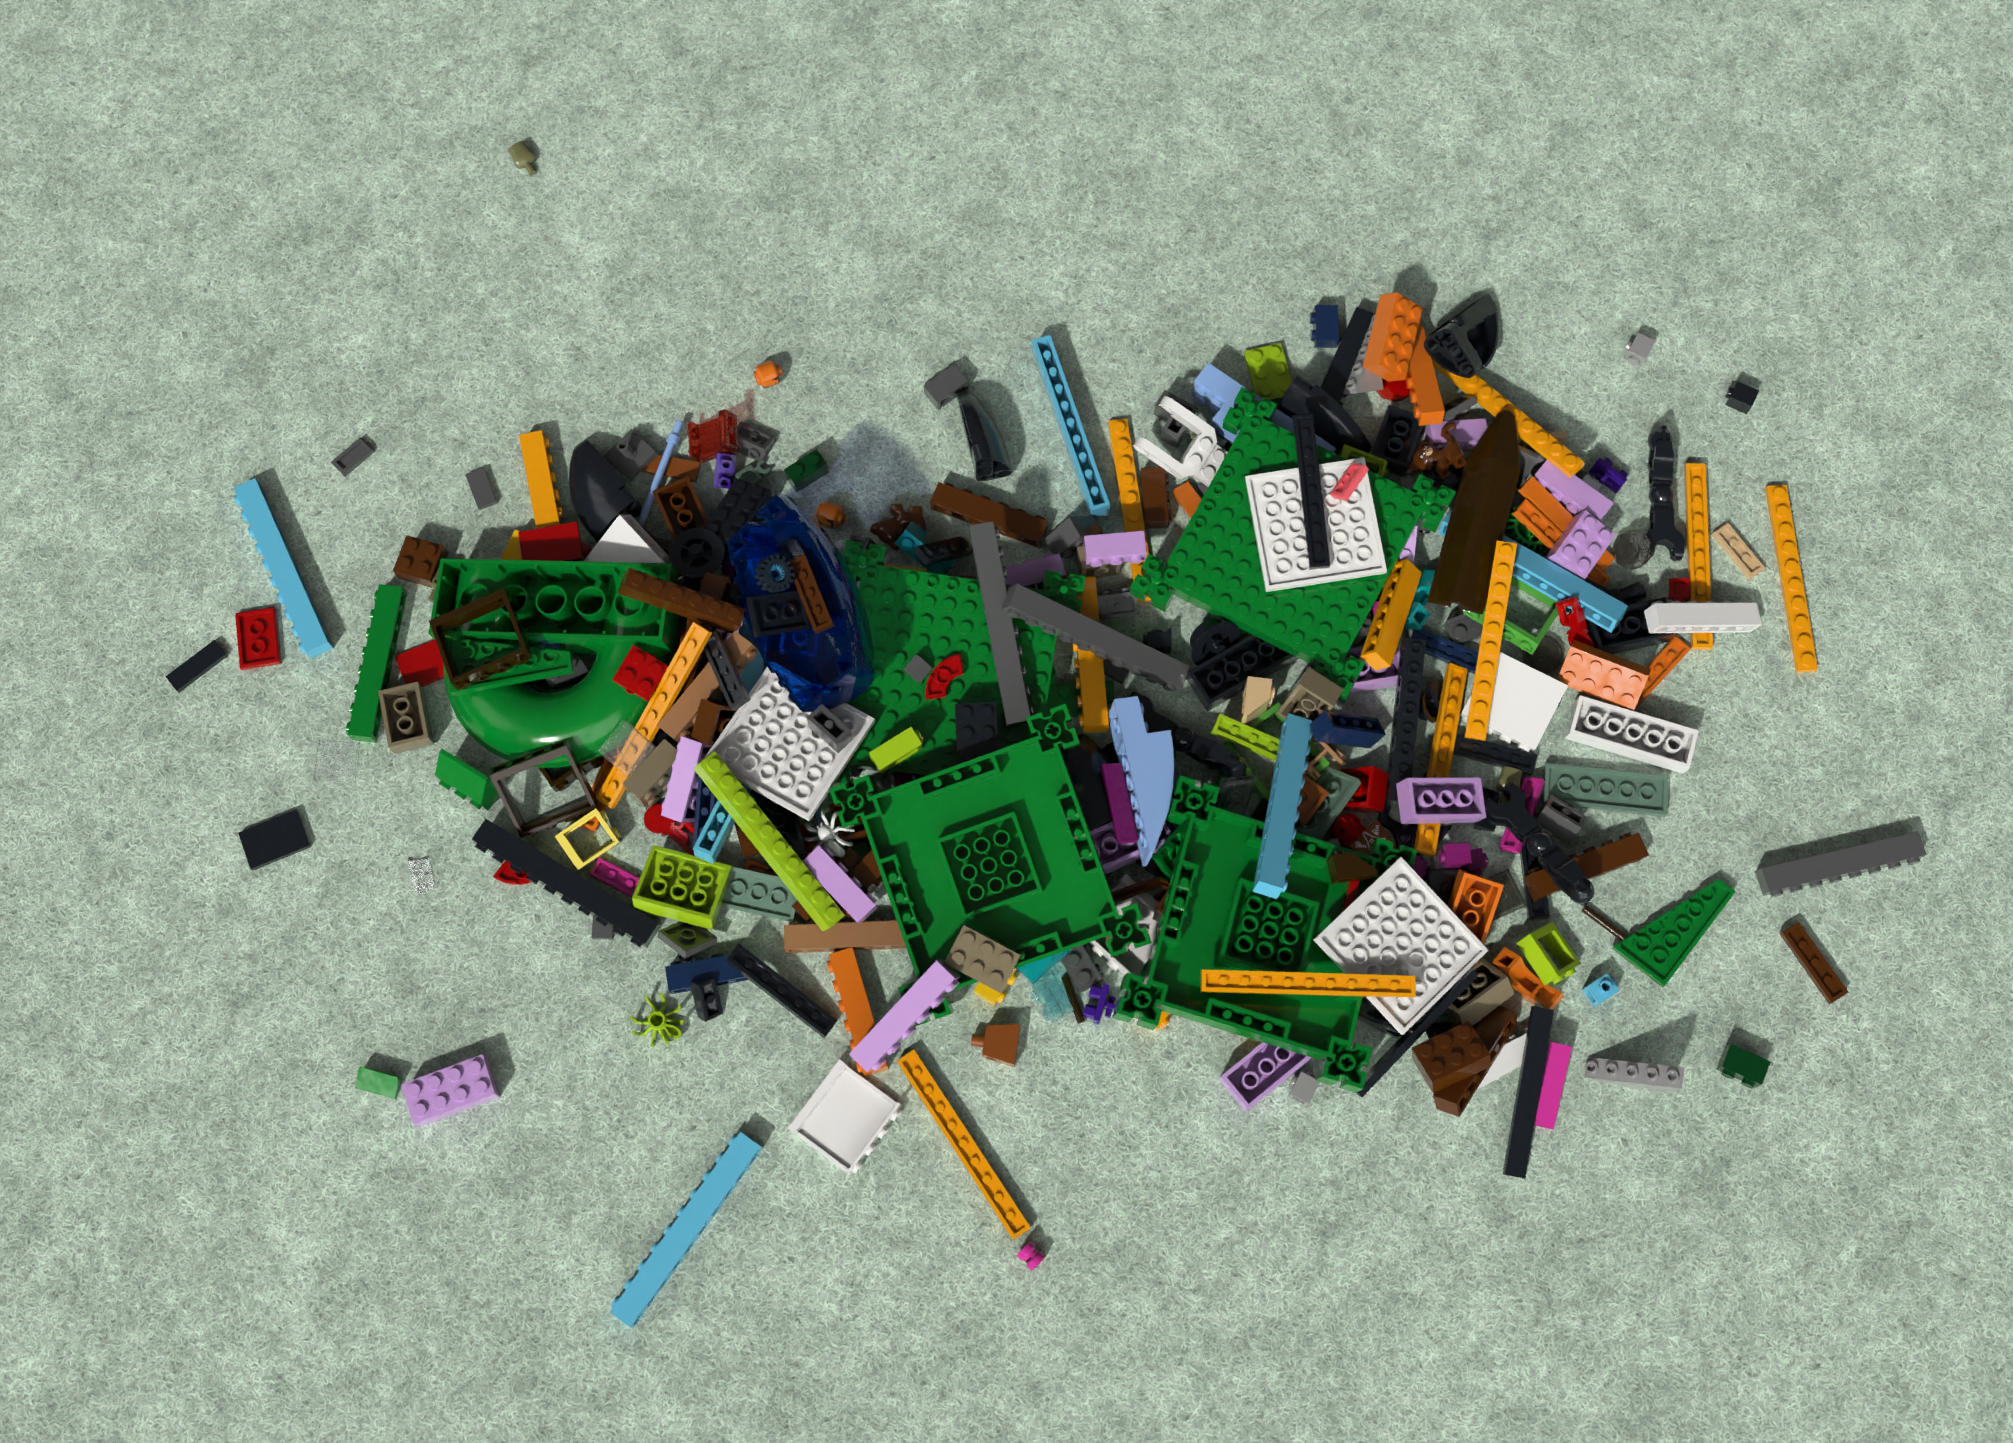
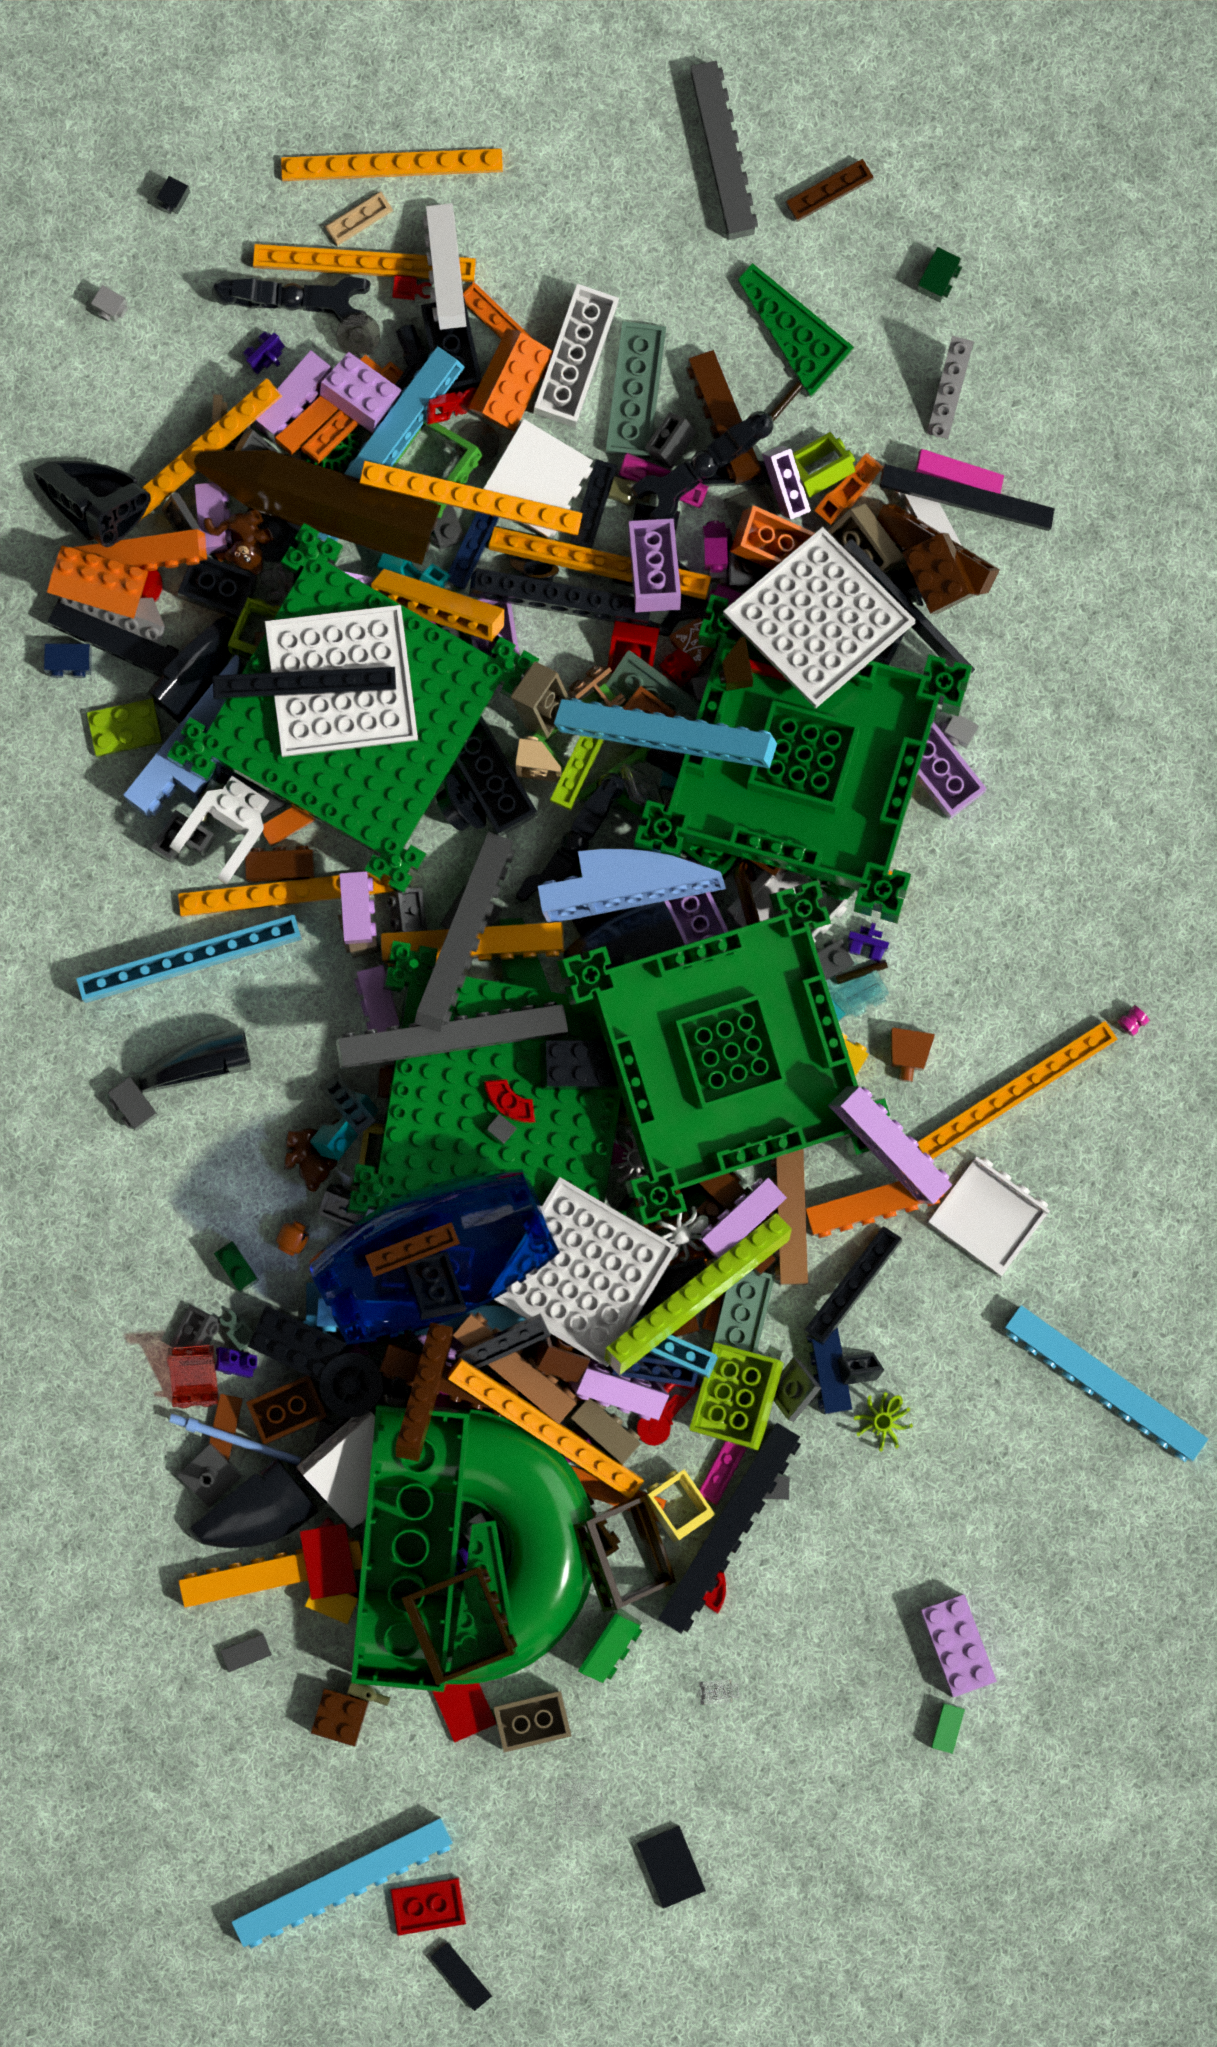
camera: 90 degrees left, 10 degrees up
(352, 457) = (200, 1811): dark grey tile -> none
(376, 663) = (464, 1761): green brick -> none
(626, 748) = (582, 1459): clear tile -> none
(640, 673) = (502, 1441): red plate -> none
(767, 374) = (110, 1314): orange head -> none
(784, 573) = (391, 1277): black bush -> none
(829, 728) = (576, 1223): dark grey brick -> none
(896, 750) = (596, 1152): lime window -> none
(980, 509) = (296, 1055): reddish brown brick -> none
(983, 958) = (832, 1059): dark tan brick -> none
(1071, 535) = (328, 956): dark grey brick -> none
(1119, 803) = (655, 911): magenta tile -> none
(1159, 640) = (454, 866): black brick -> none
(1308, 983) = (866, 716): light orange plate -> none
(1347, 729) = (572, 660): dark blue brick -> none
(1349, 481) = (297, 639): coral plate -> none
(1529, 921) = (786, 482): none -> lavender brick
(1588, 479) = (280, 375): black tile -> none
(1601, 989) = (857, 412): medium azure brick -> none

